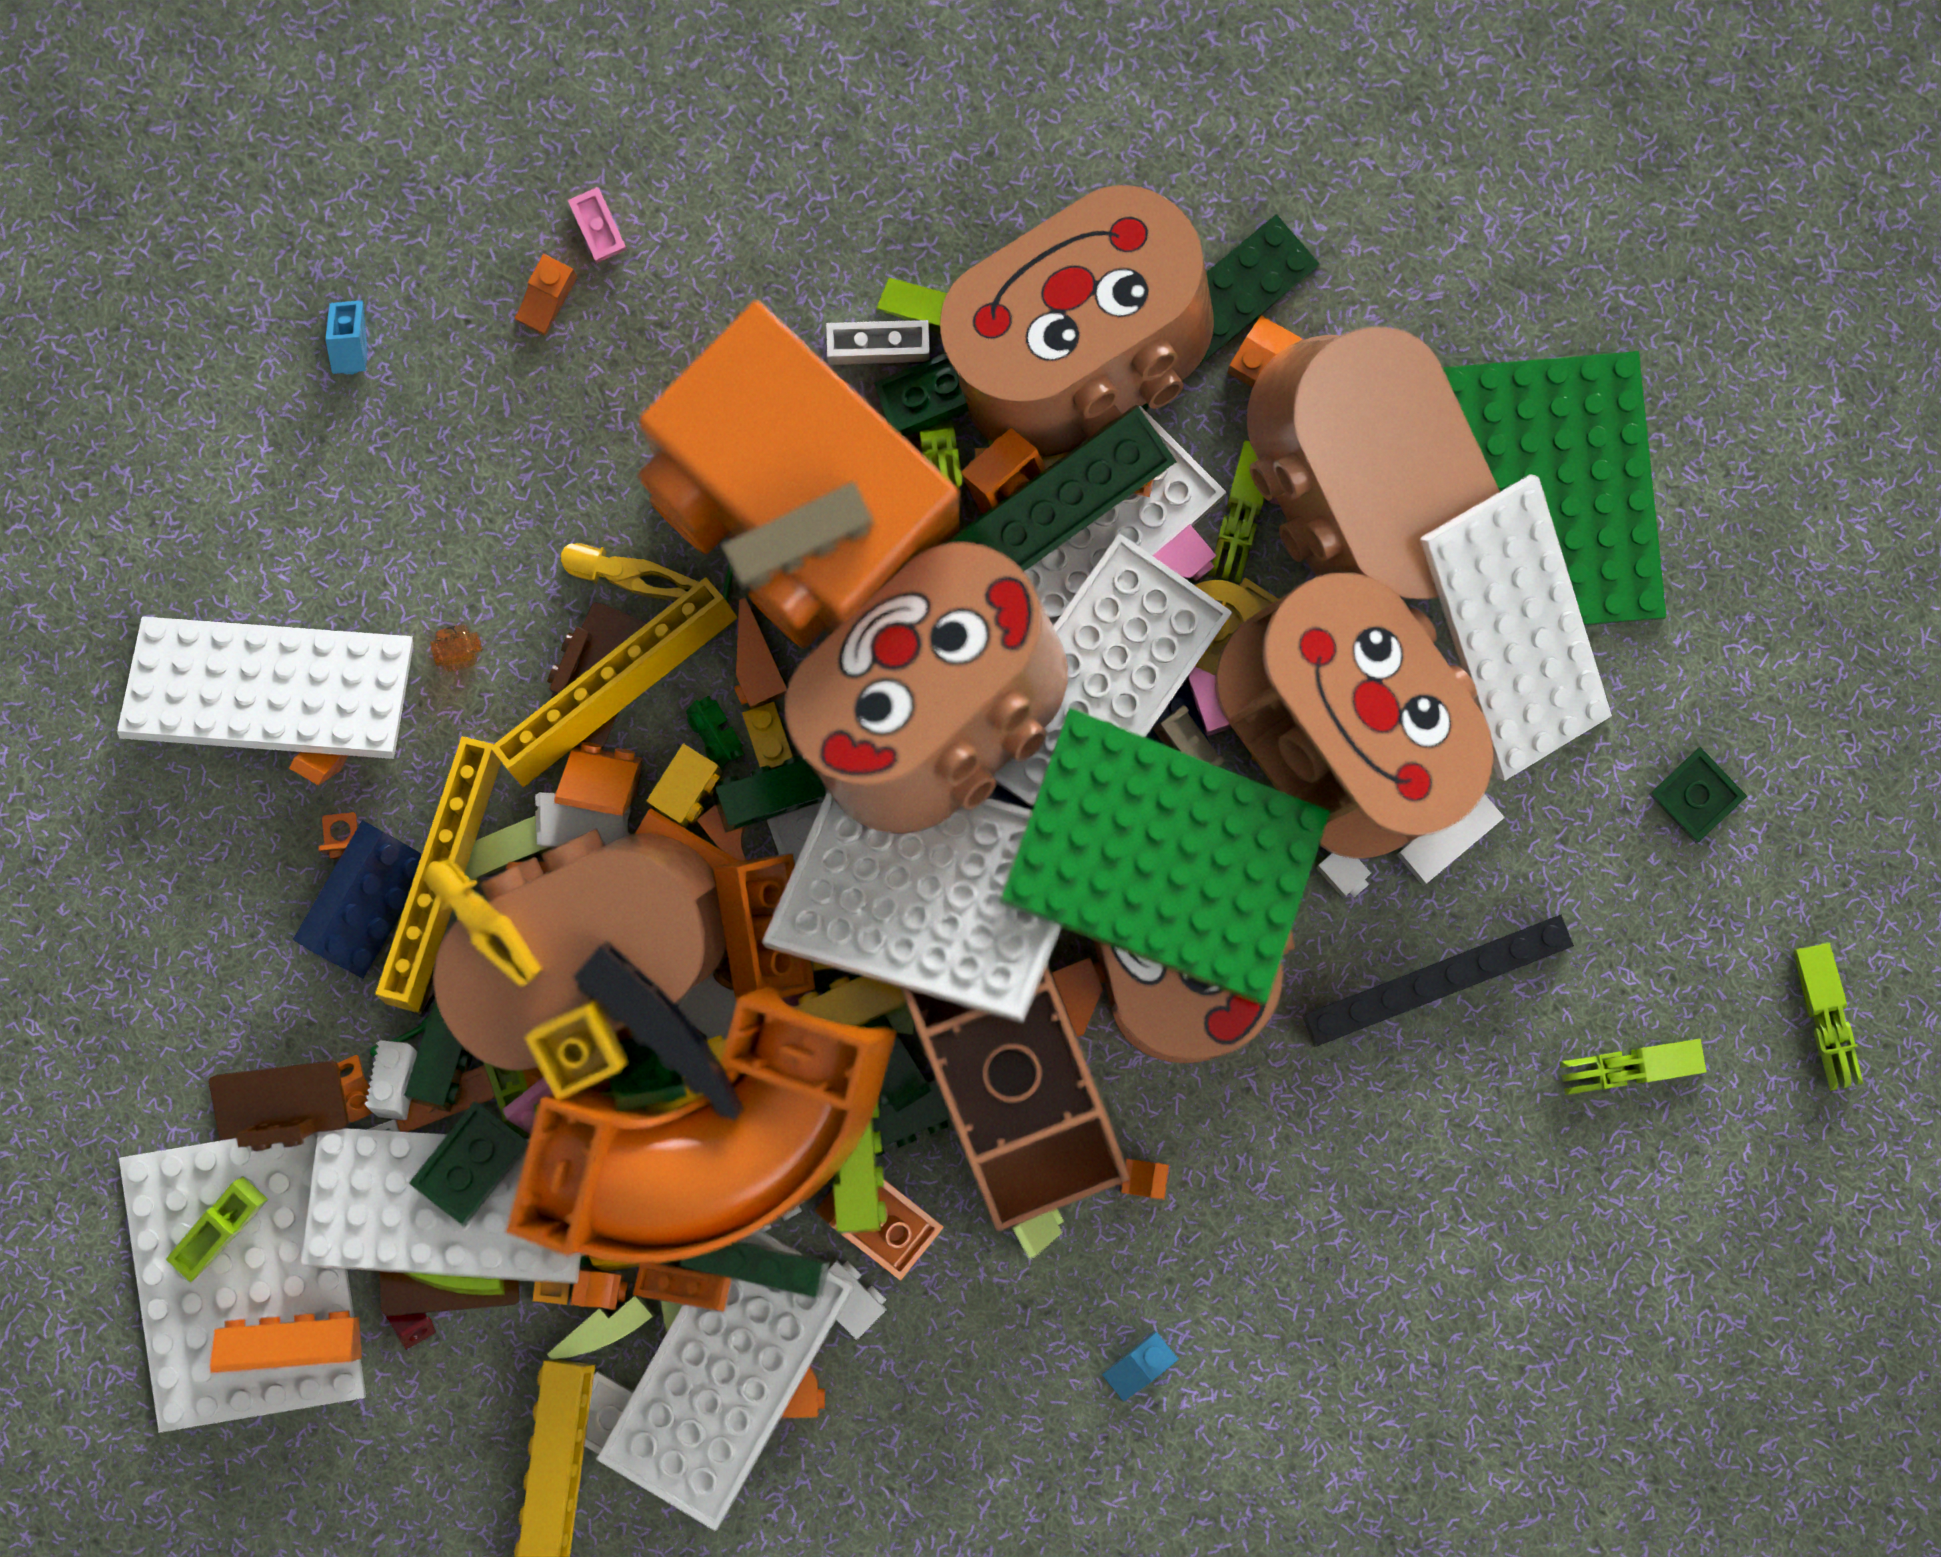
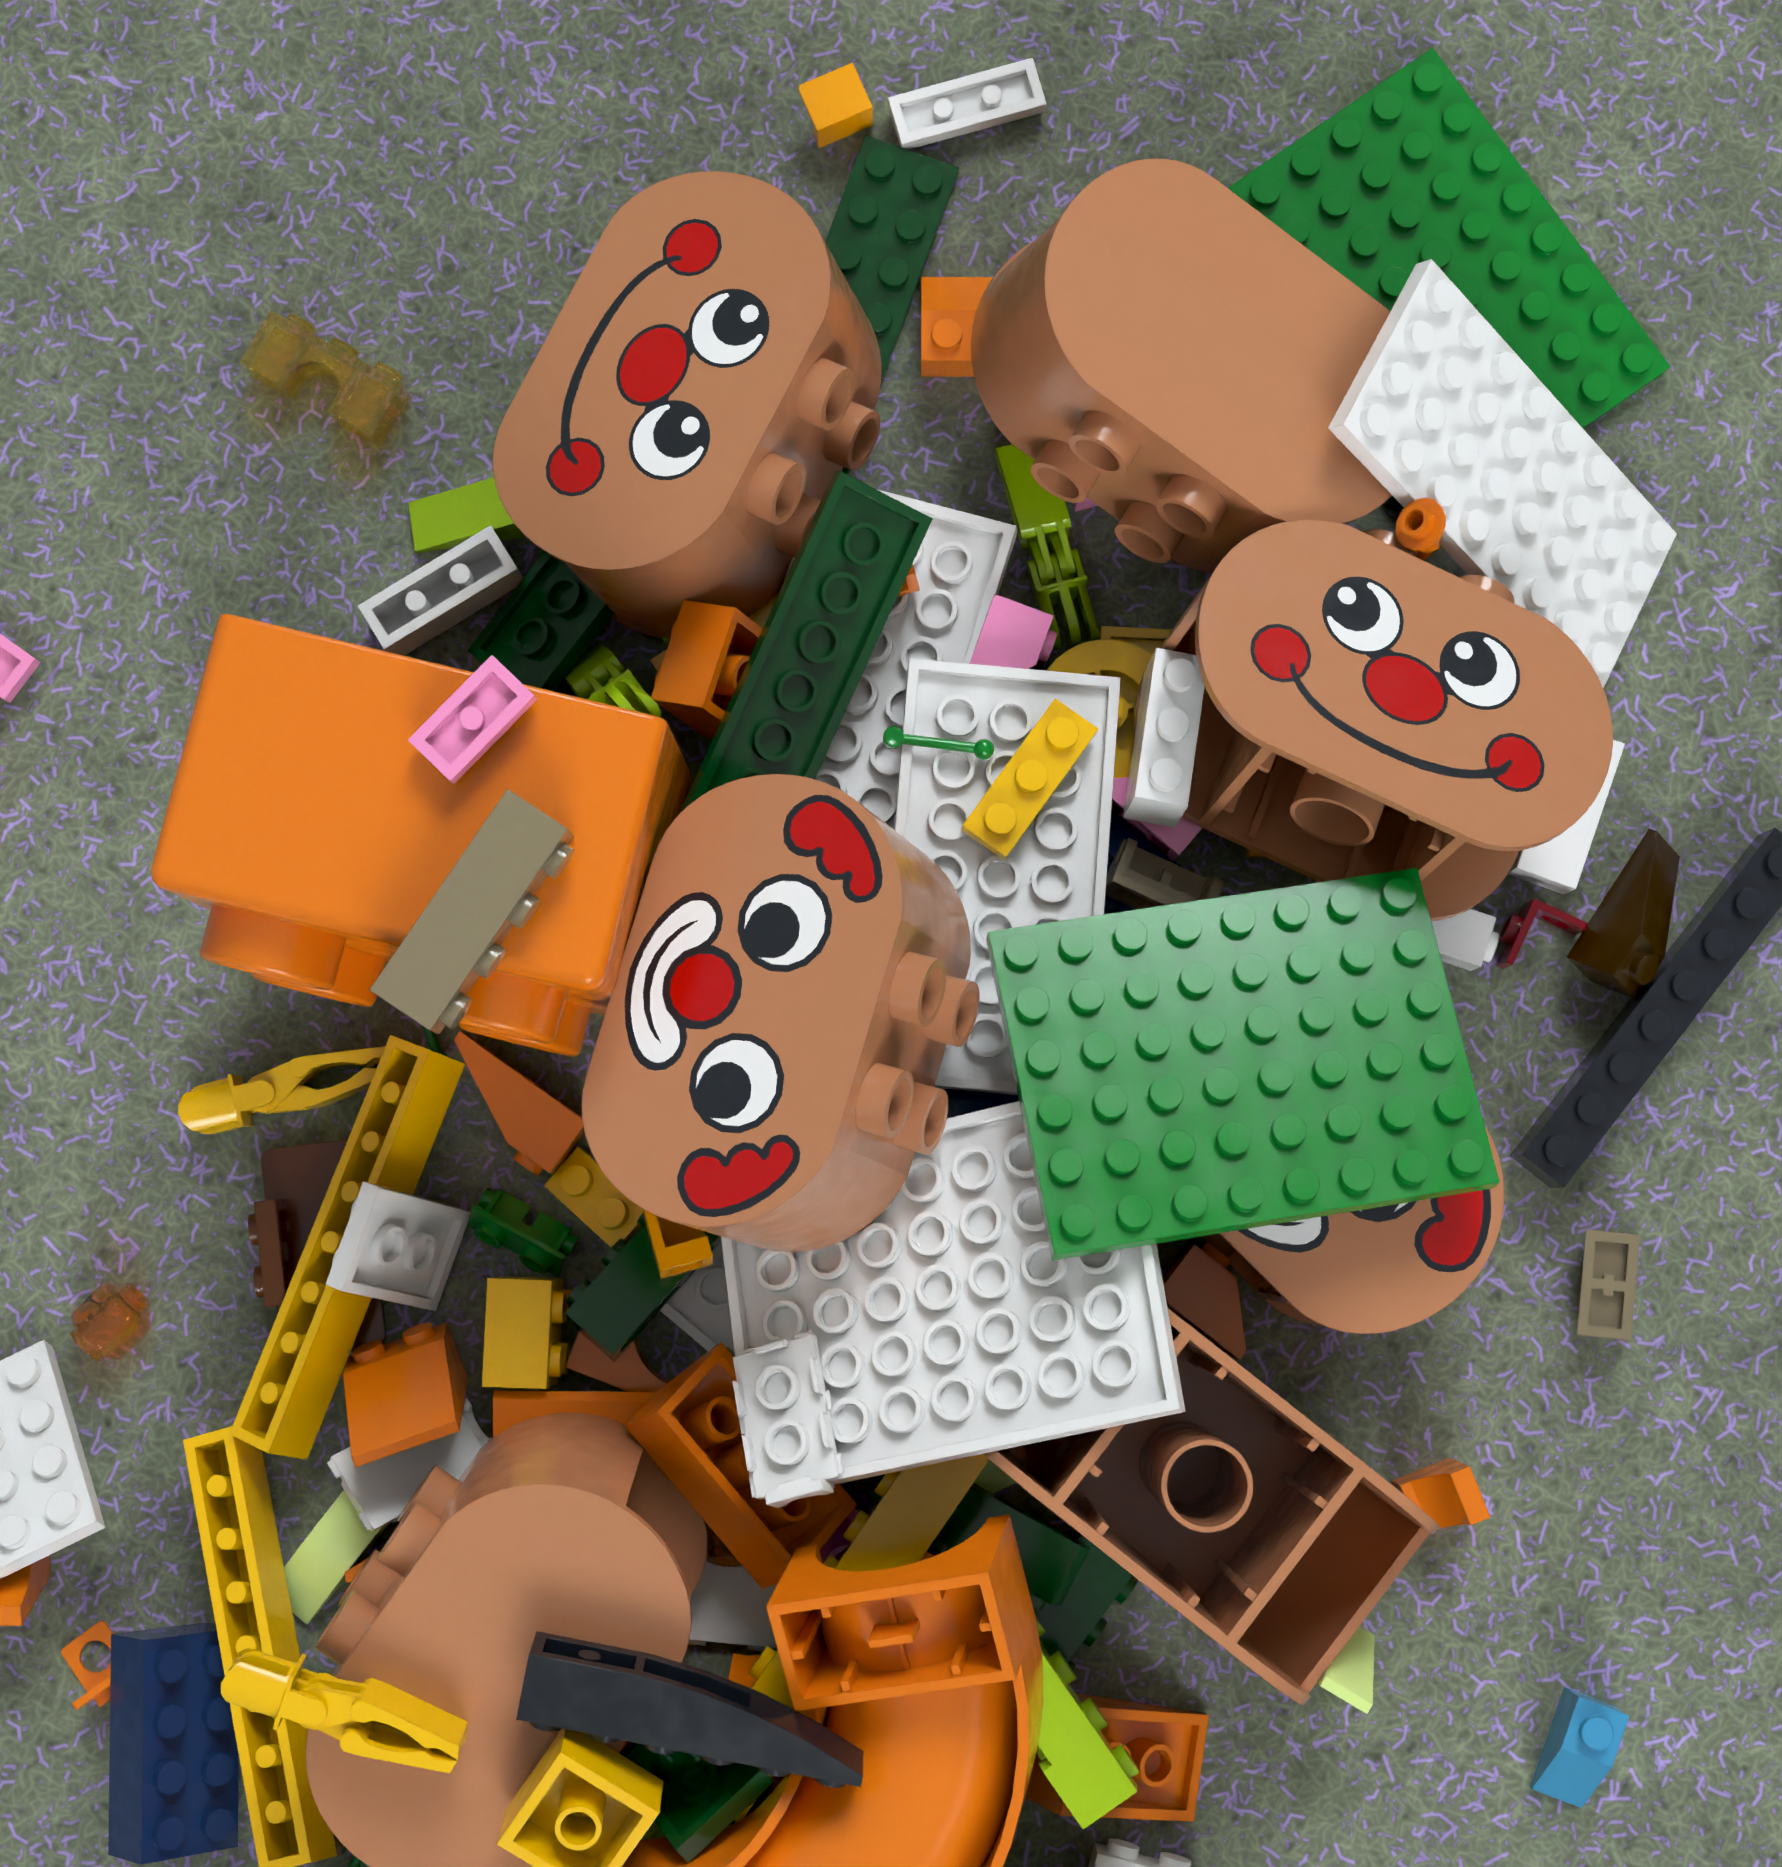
camera: 30 degrees left, 0 degrees up
(642, 698) = (398, 1247): none -> white plate
(800, 784) = (677, 1246): none -> light orange panel
(805, 910) = (786, 1420): none -> white piece
(856, 433) = (472, 719): none -> bright pink plate
(870, 153) = (289, 354): none -> clear yellow arch
(1084, 572) = (894, 738): none -> green hinge
(1146, 639) = (1029, 779): none -> yellow plate
(1232, 663) = (1165, 739): none -> white brick
(1269, 187) = (836, 105): none -> light orange panel
(1313, 1118) = (1608, 1284): none -> dark tan hinge
(1346, 229) = (967, 104): none -> white plate
(1382, 886) = (1518, 926): none -> dark red bracket
(1443, 623) = (1422, 530): none -> orange plate
(1450, 921) = (1632, 923): none -> dark brown slope

